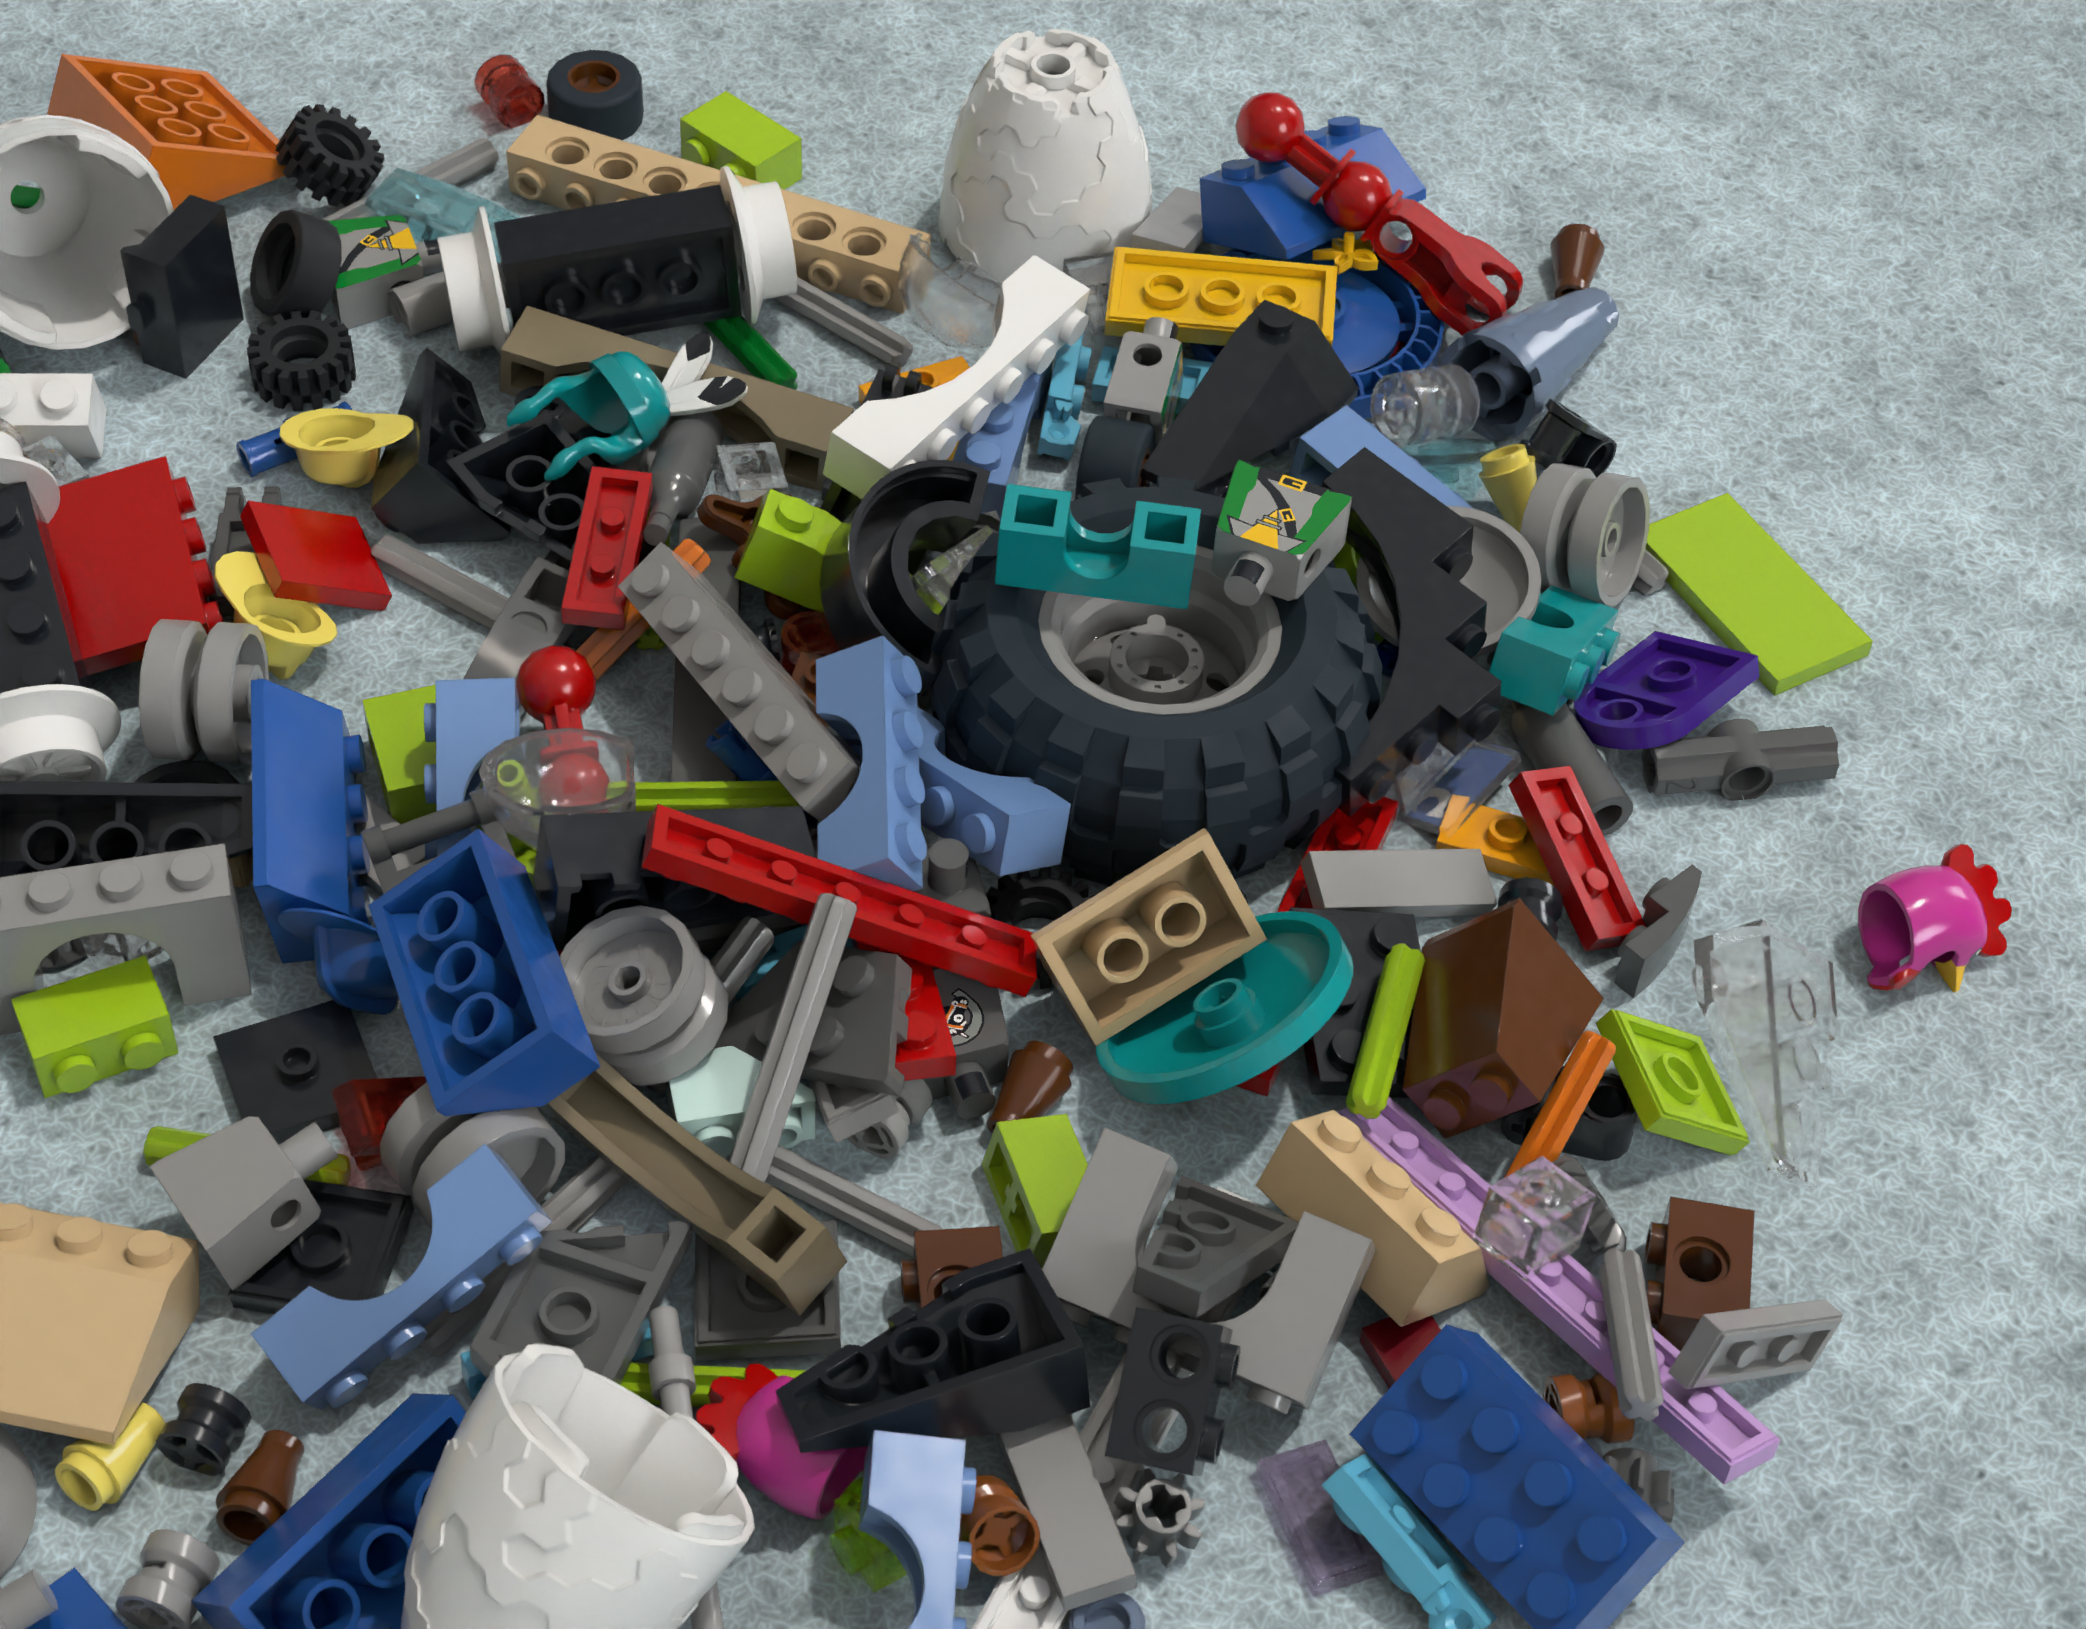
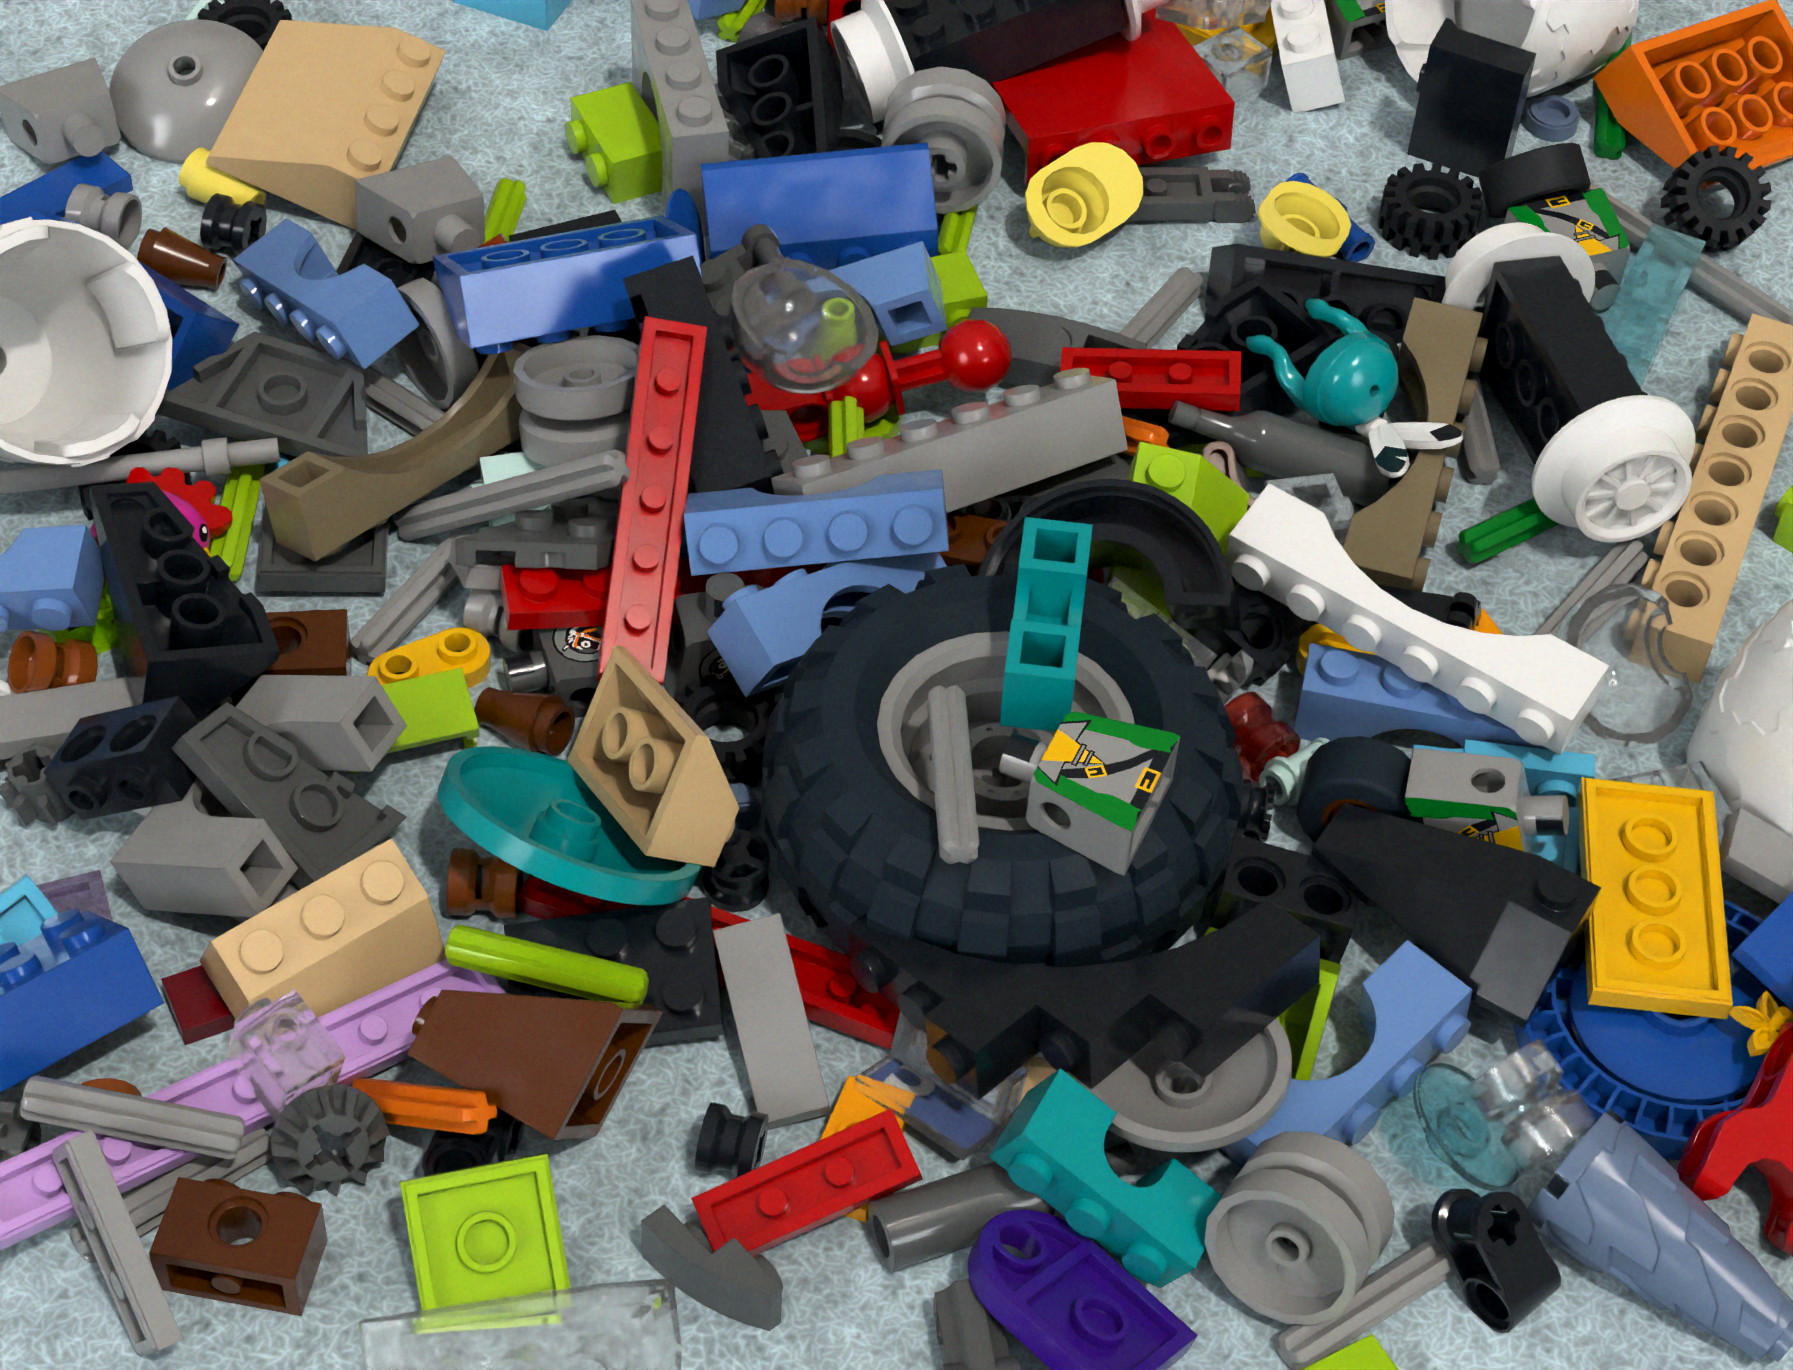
camera: 90 degrees right, 0 degrees up
(315, 556) = (1155, 223): red tile -> none
(948, 1181) = (436, 655): none -> yellow plate
(1256, 637) = (952, 775): none -> light grey axle
(1257, 1110) = (499, 885): none -> dark orange wheel
(1509, 479) = (1414, 1175): light yellow cone -> none

